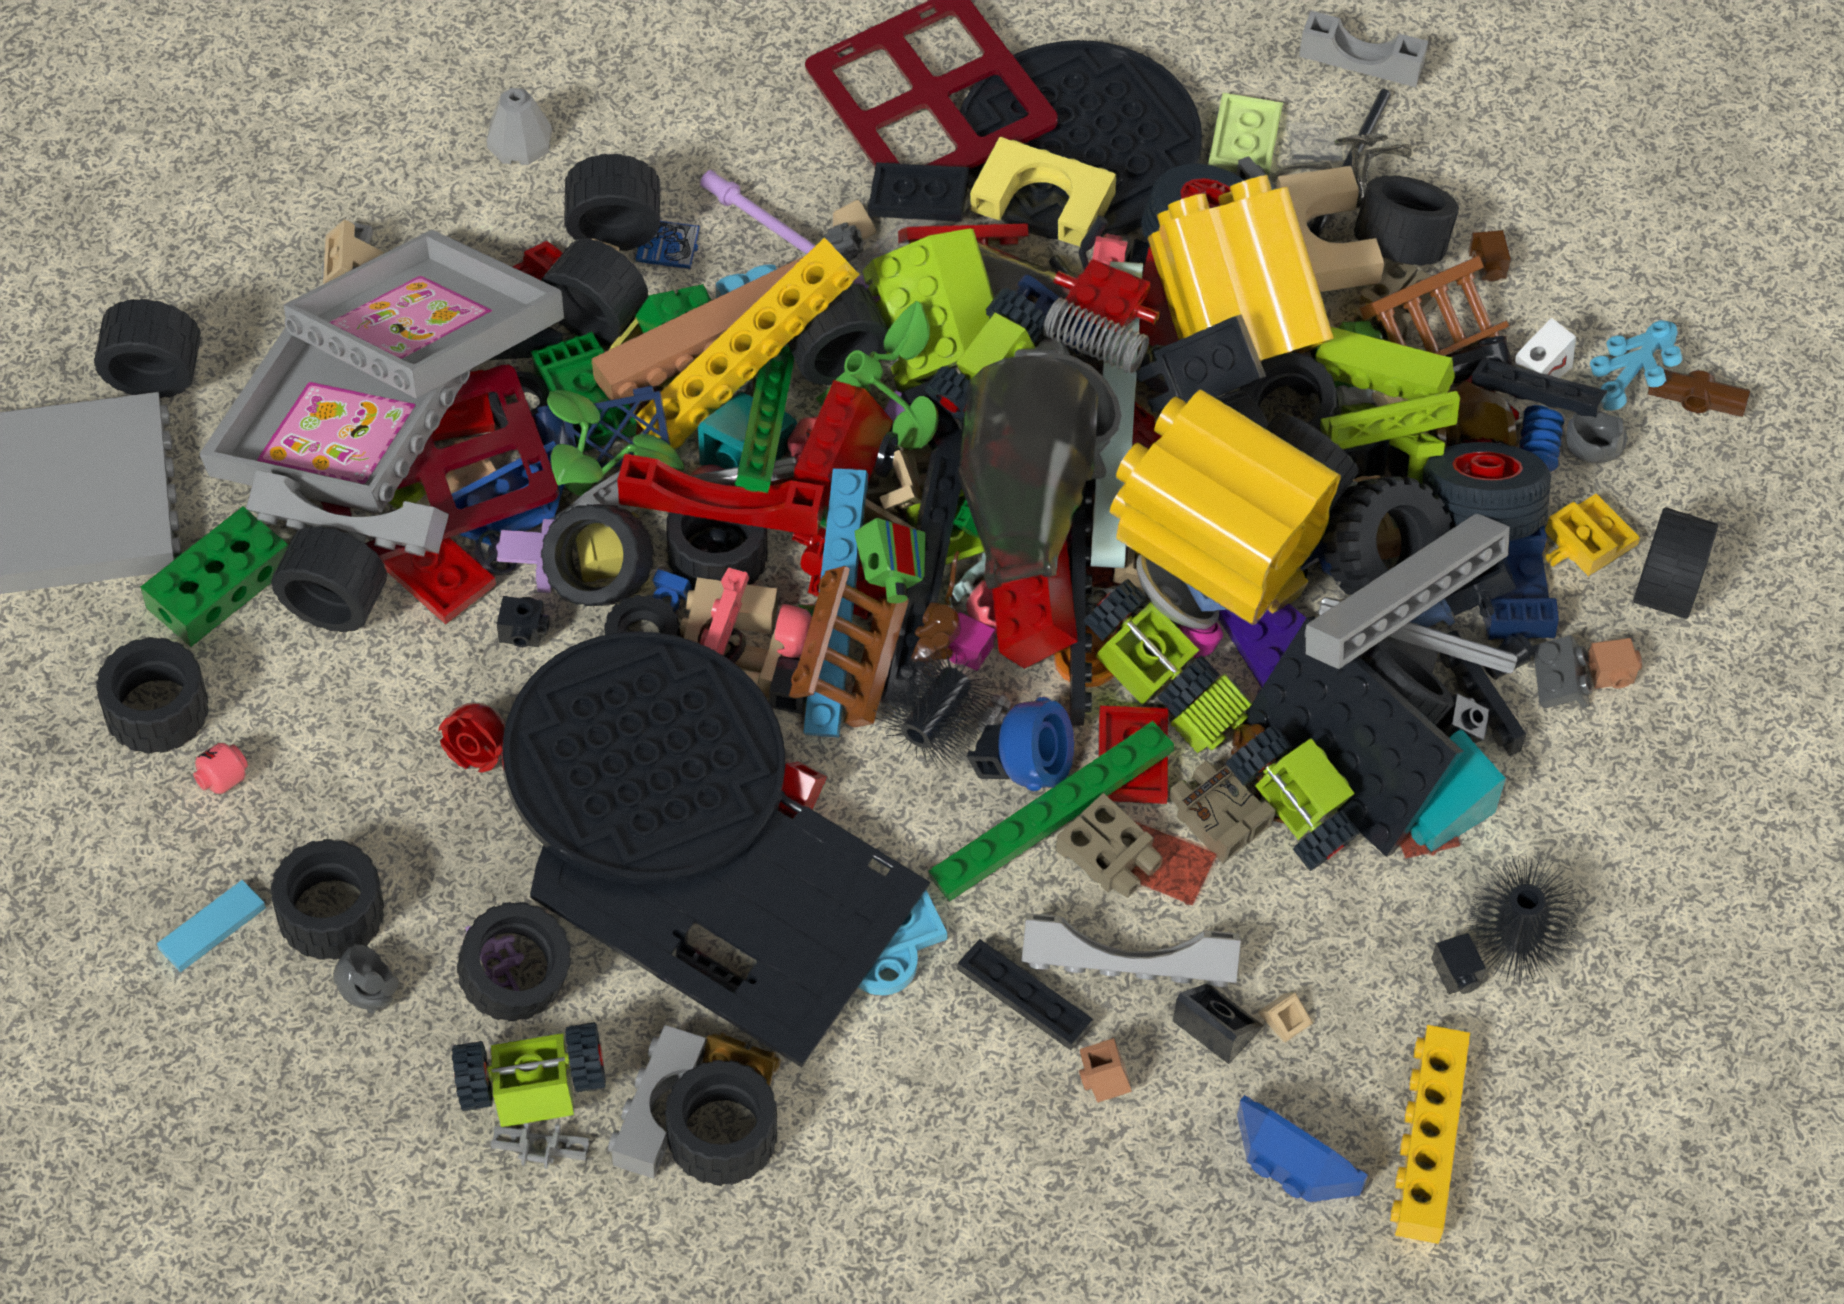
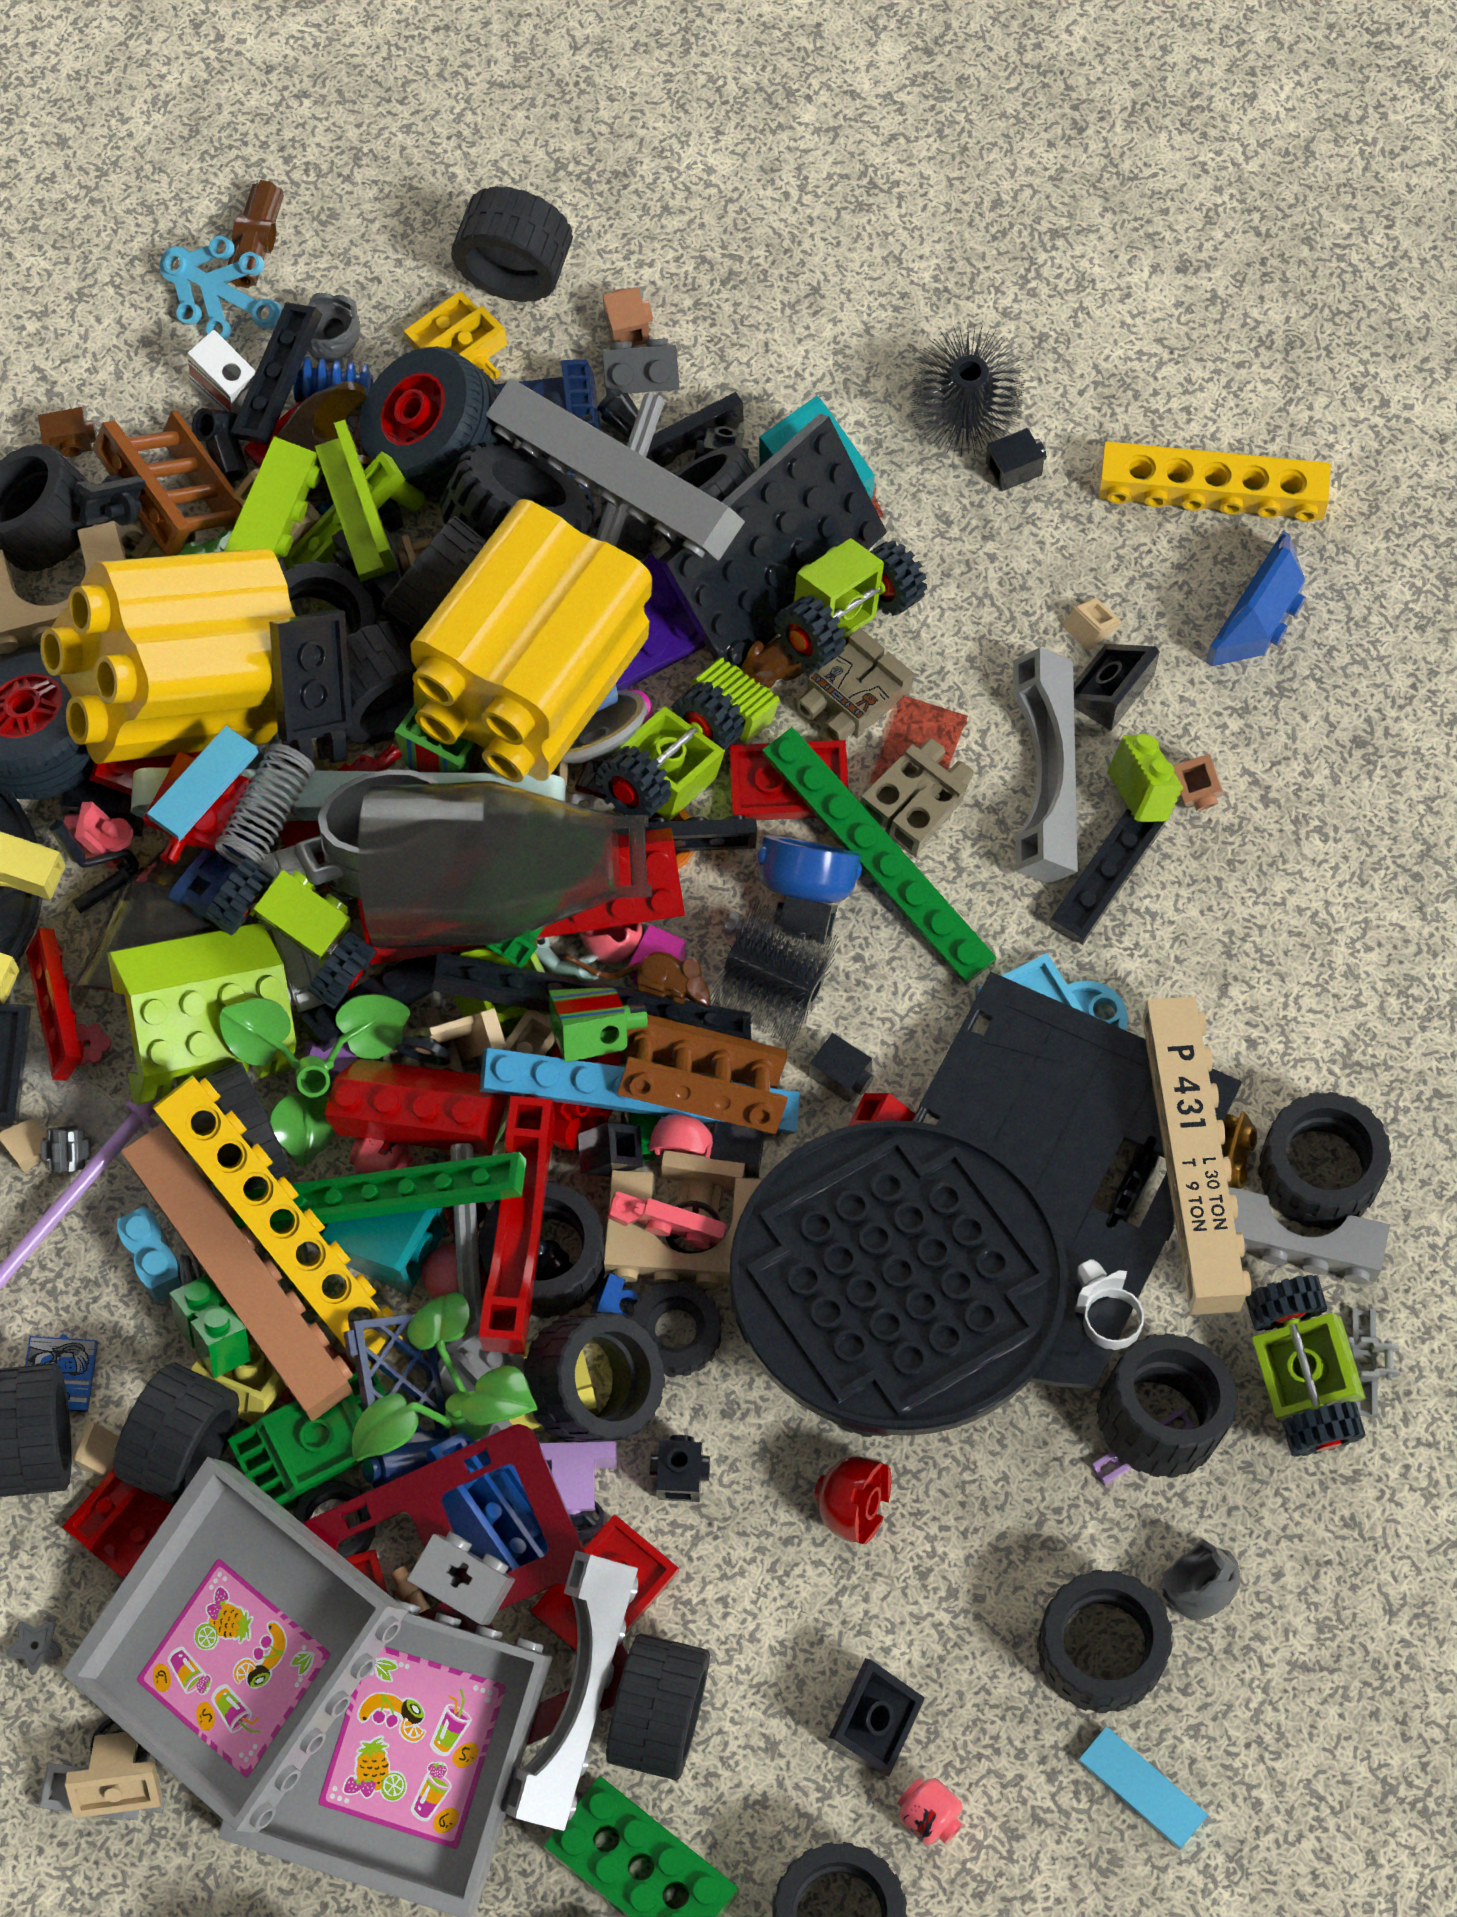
camera: 90 degrees left, 10 degrees up
(302, 737) = (875, 1719): none -> black slope
(444, 449) = (437, 1576): none -> light grey brick
(461, 231) = (35, 1657): none -> dark grey plate
(620, 898) = (1096, 1286): none -> white piece
(729, 998) = (1194, 1156): none -> tan brick
(794, 586) = (610, 1149): none -> black brick
(855, 766) = (841, 1068): none -> black brick
(1108, 1020) = (1145, 778): none -> lime brick
(1115, 289) = (202, 783): none -> medium azure tile
(1400, 258) = (111, 500): none -> black hips

